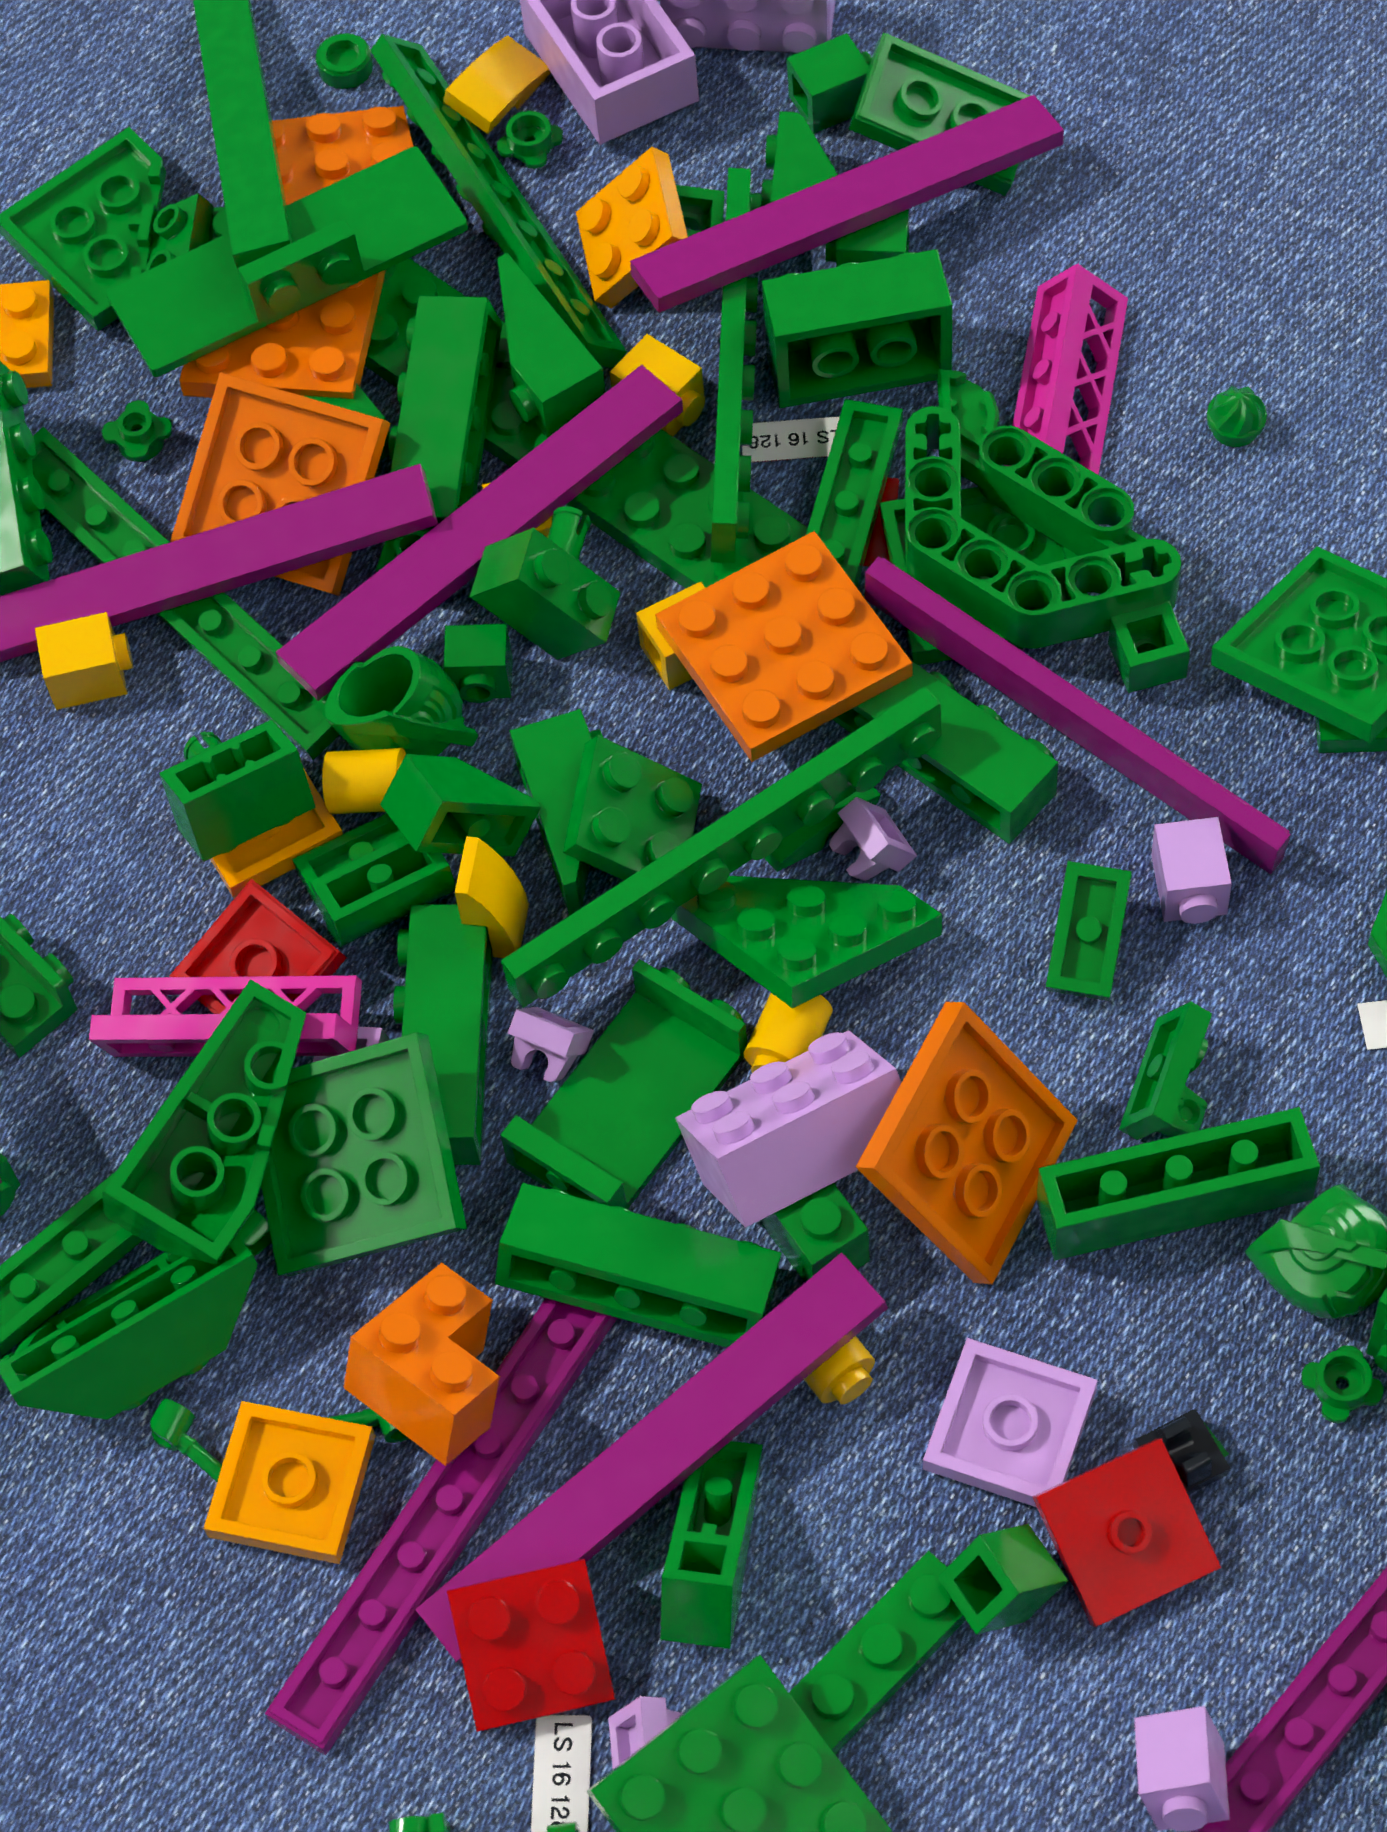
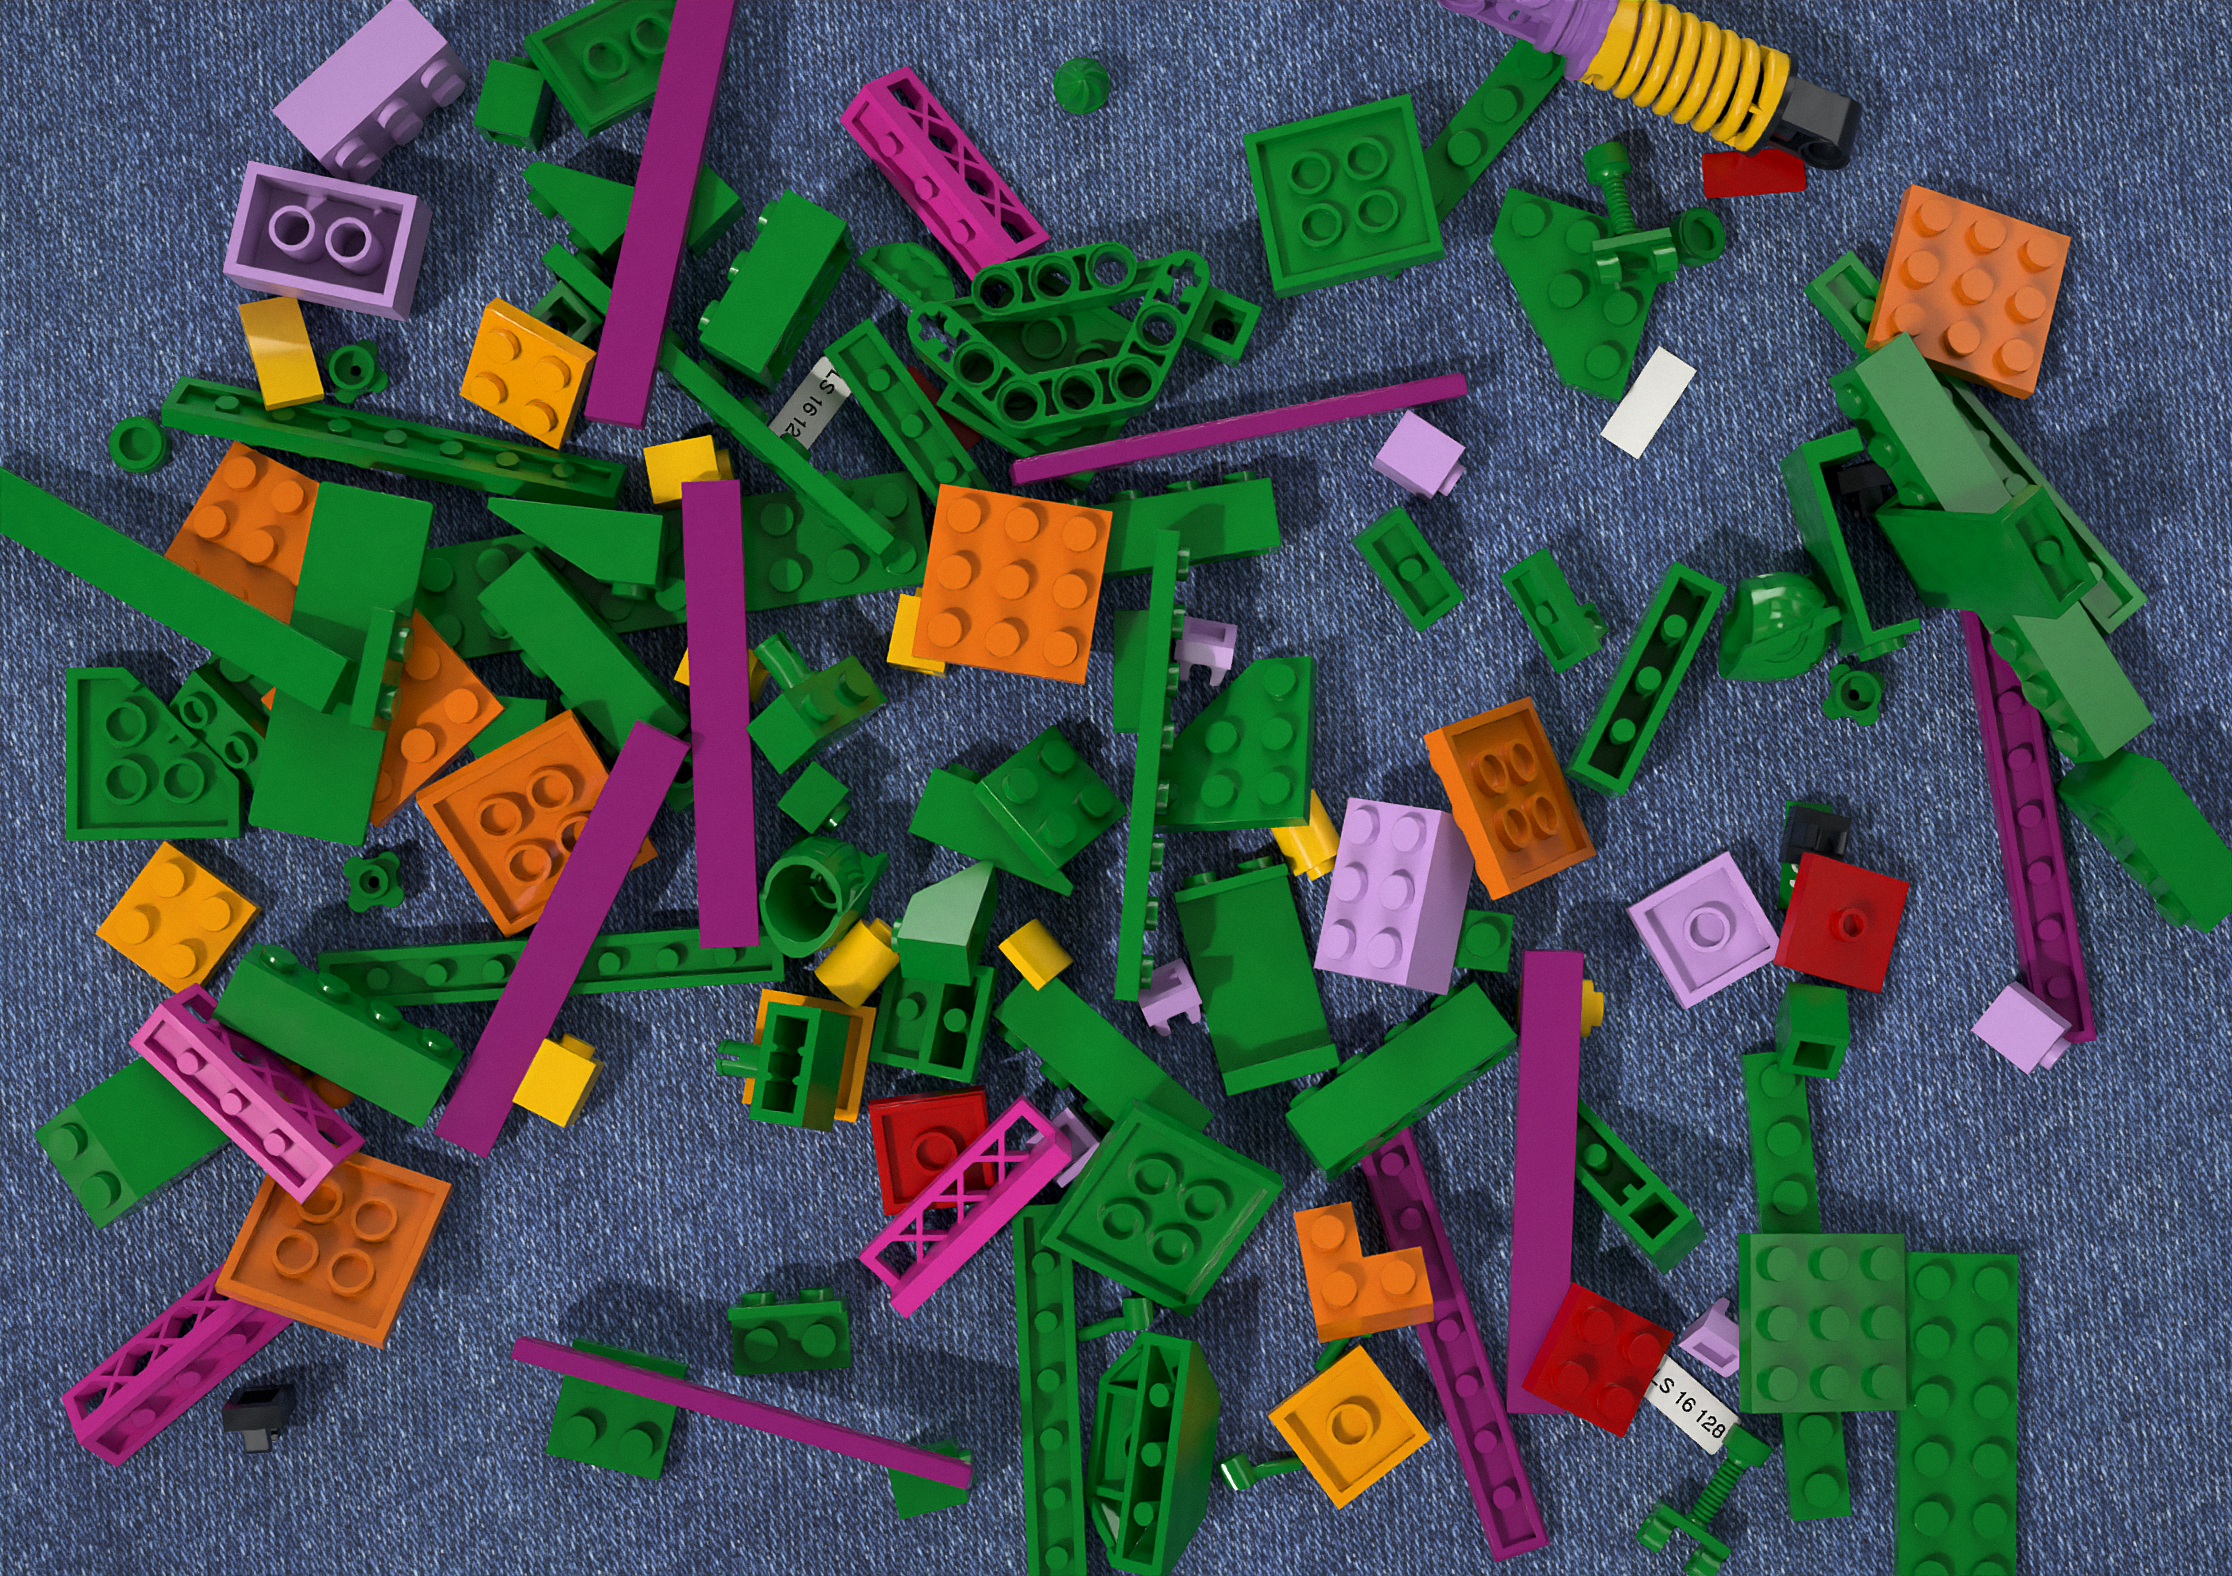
camera: 55 degrees left, 25 degrees up
(209, 1144) = (1080, 1306): green wedge -> none

